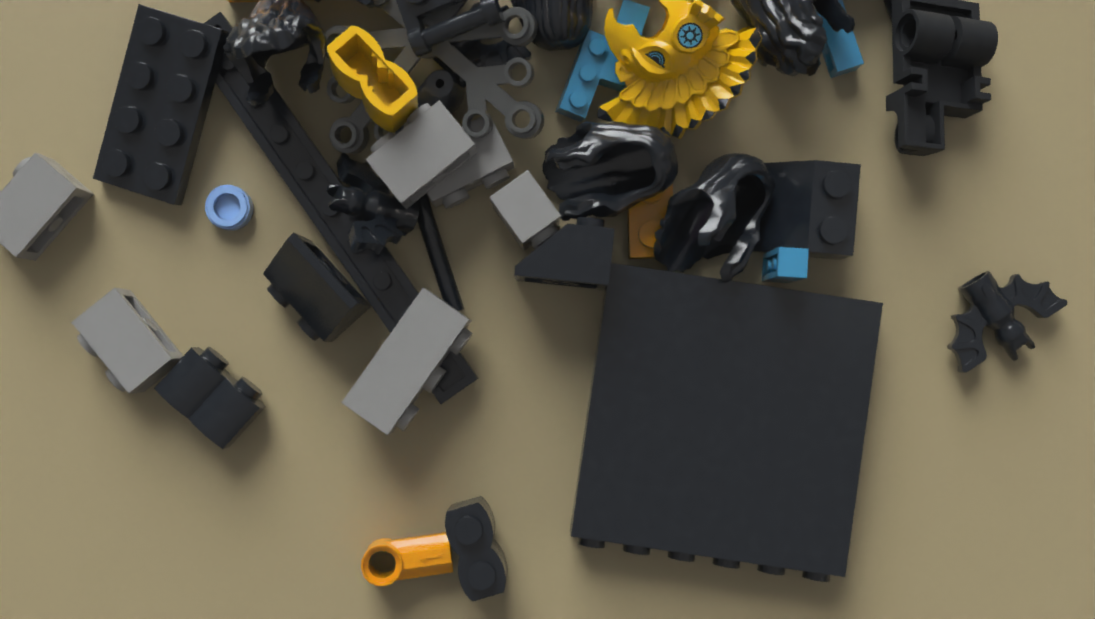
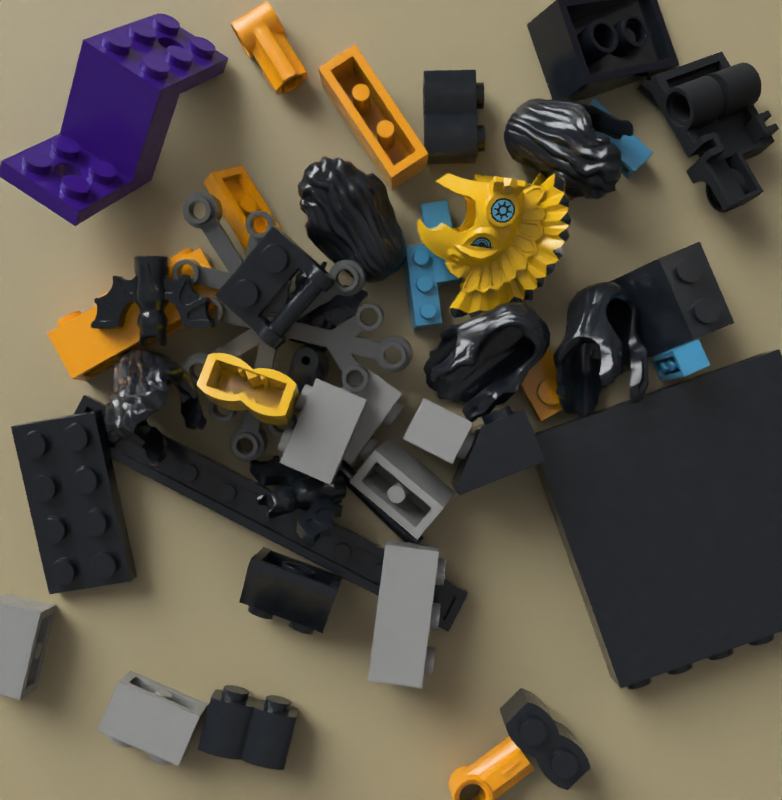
camera: 20 degrees left, 0 degrees up
(229, 207) = (178, 556): light blue tile -> none
(468, 248) = (402, 487): none -> light grey brick

